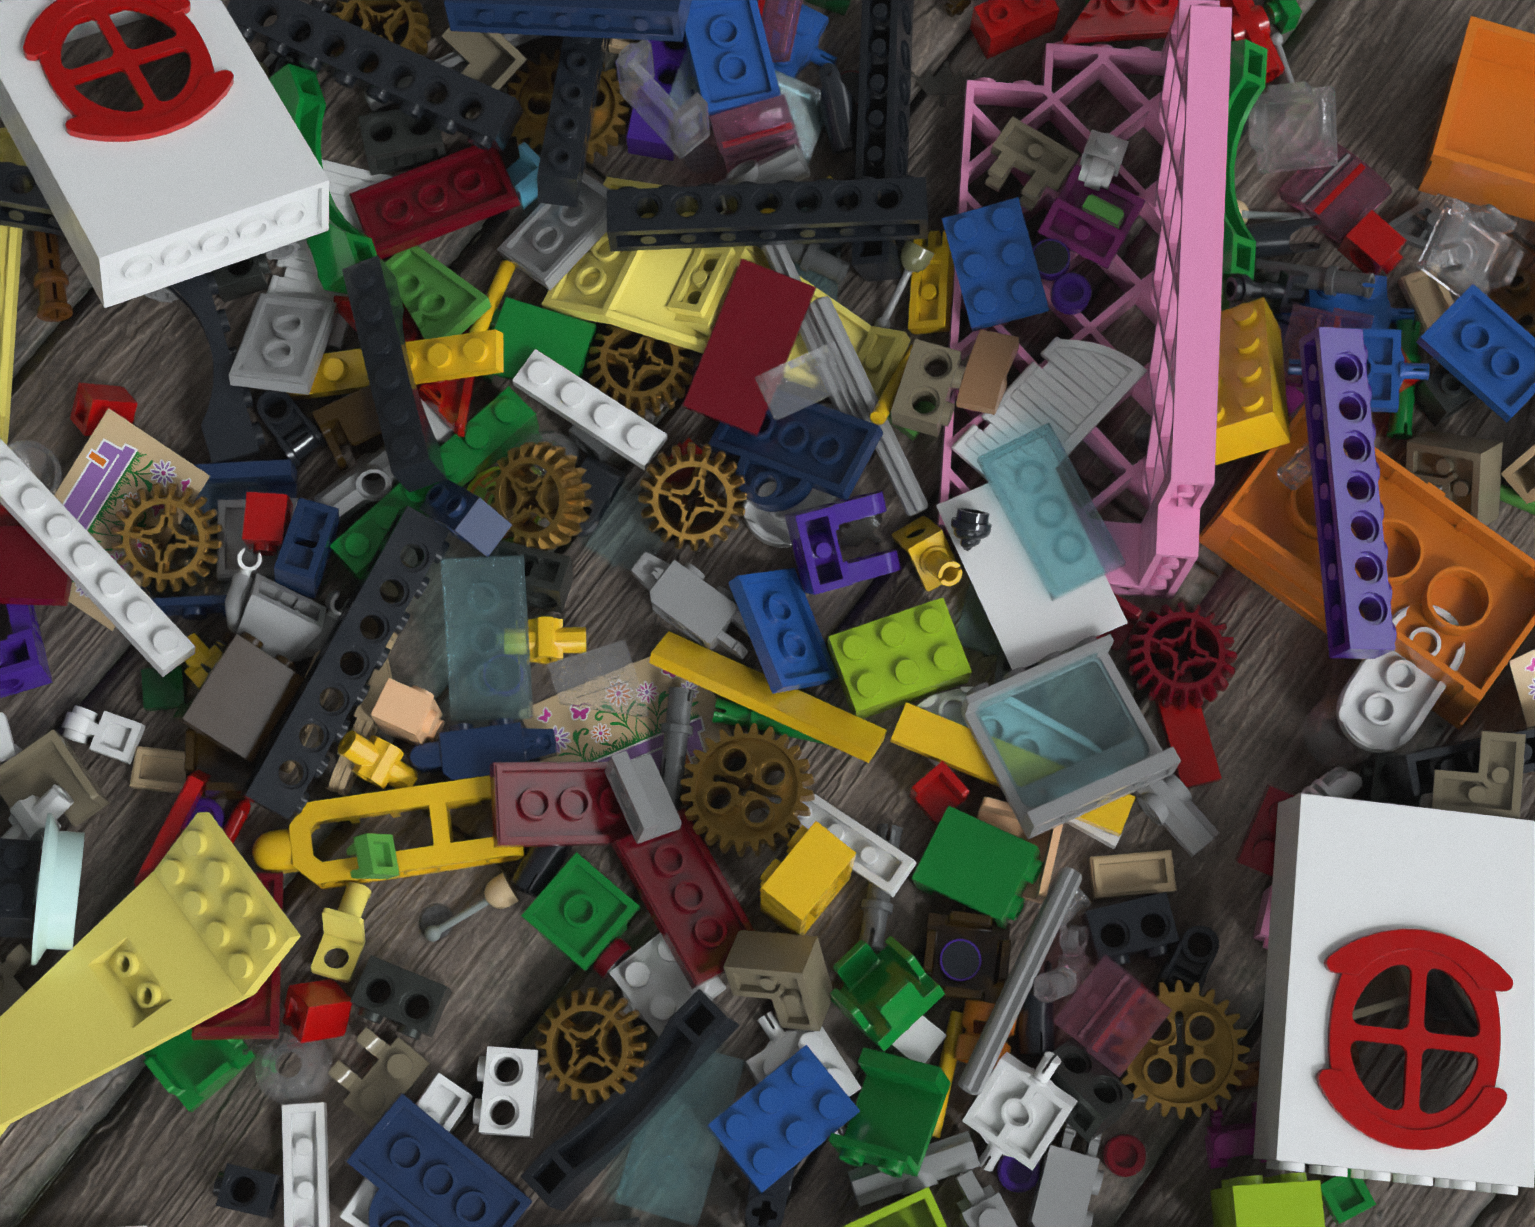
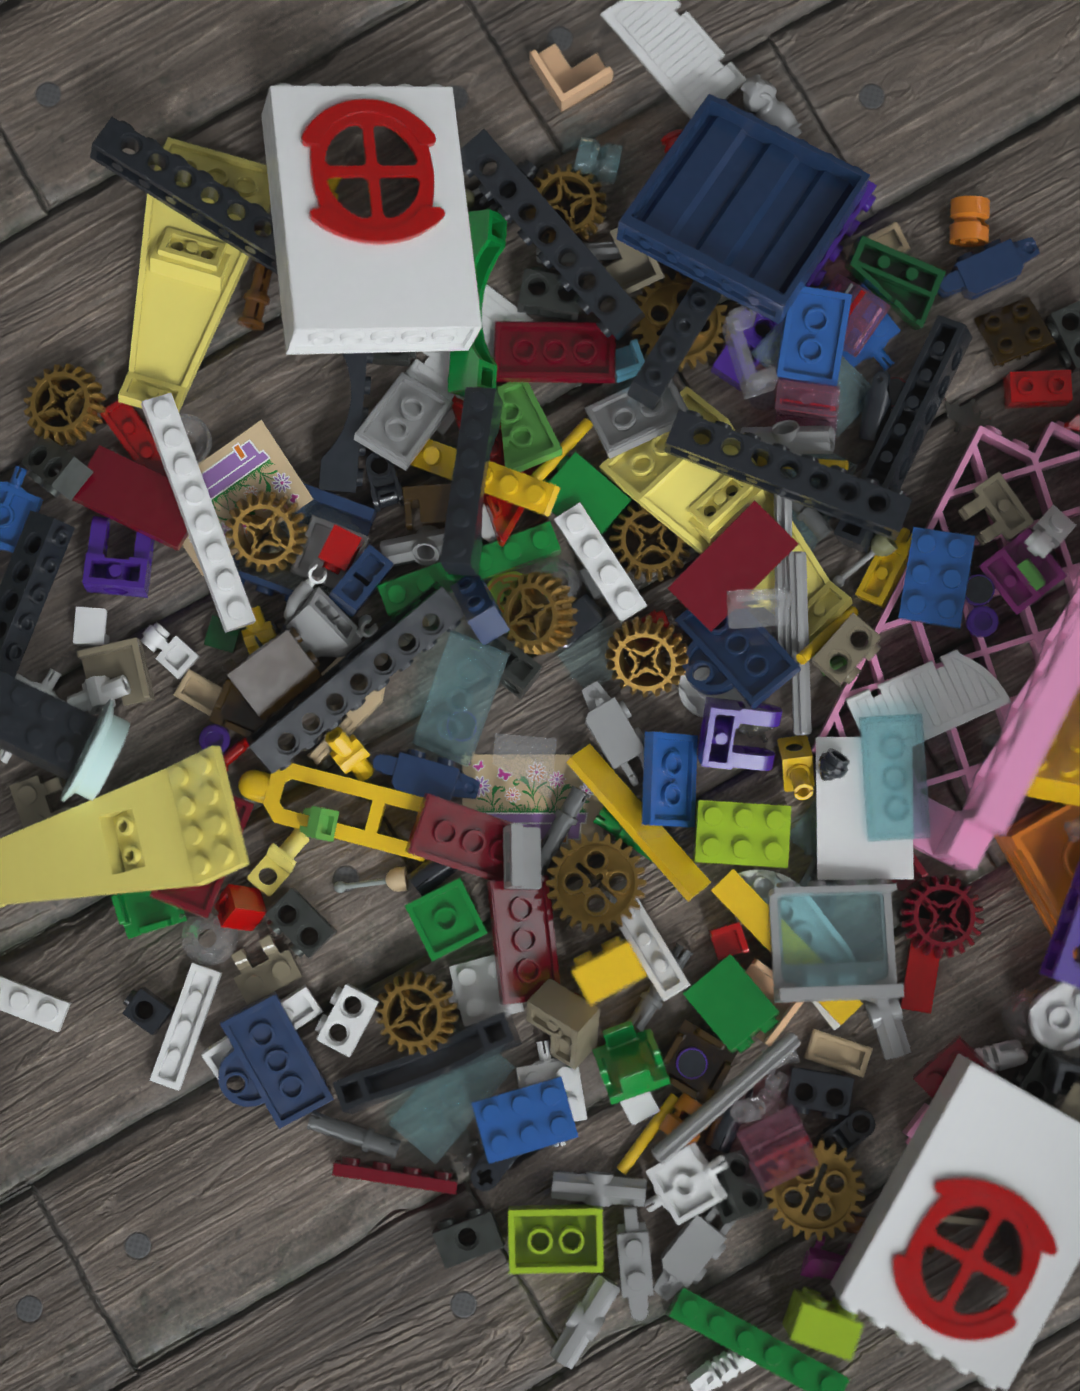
camera: 25 degrees right, 10 degrees up
(93, 402) = (257, 406): red panel -> none
(175, 822) = (192, 740): red tile -> none
(408, 713) = (385, 730): light nougat brick -> none
(550, 639) = (505, 716): yellow axle -> none
(611, 957) = (454, 957): dark red tile -> none
(895, 1116) = (601, 1151): green panel -> none
(987, 372) = (895, 656): medium nougat slope -> none
(1015, 1175) = (665, 1223): dark purple tile -> none
(1124, 1155) = (745, 1240): dark red tile -> none
(1345, 1197) = (881, 1338): green plate -> none

